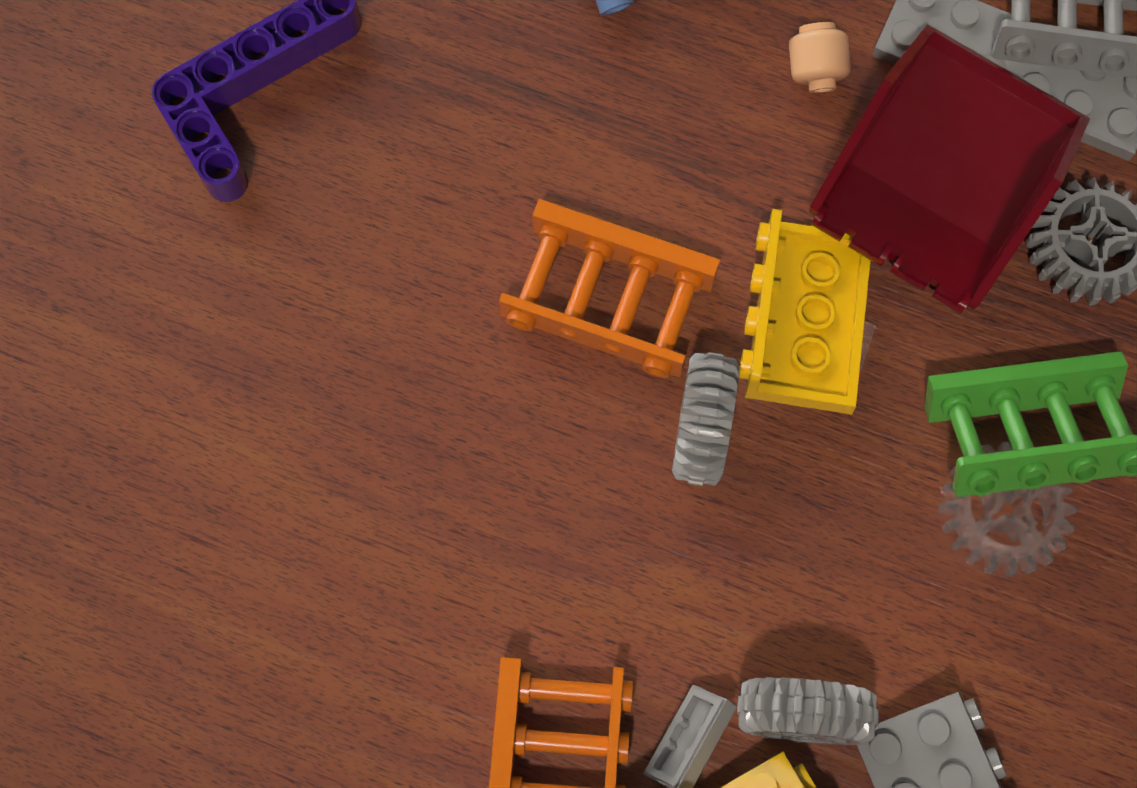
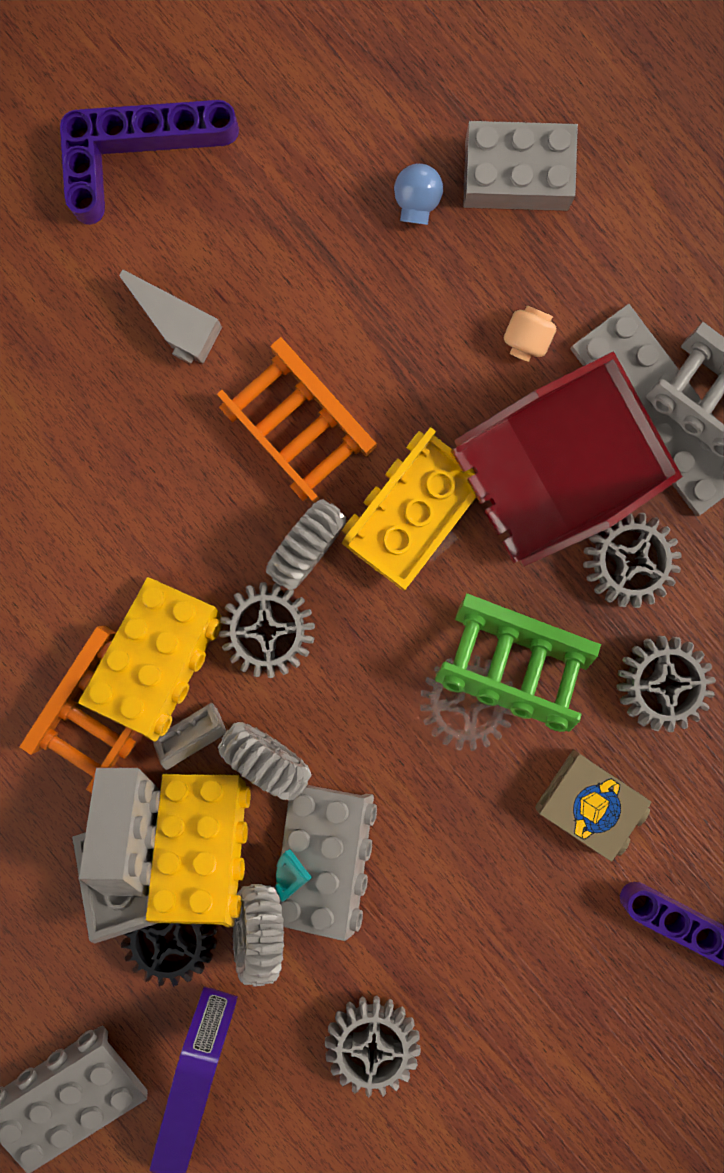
camera: 25 degrees right, 15 degrees up
(405, 249) = (181, 324): none -> light grey slope
(592, 662) = (152, 659): none -> yellow bracket
(700, 532) = (237, 632): none -> light grey gear

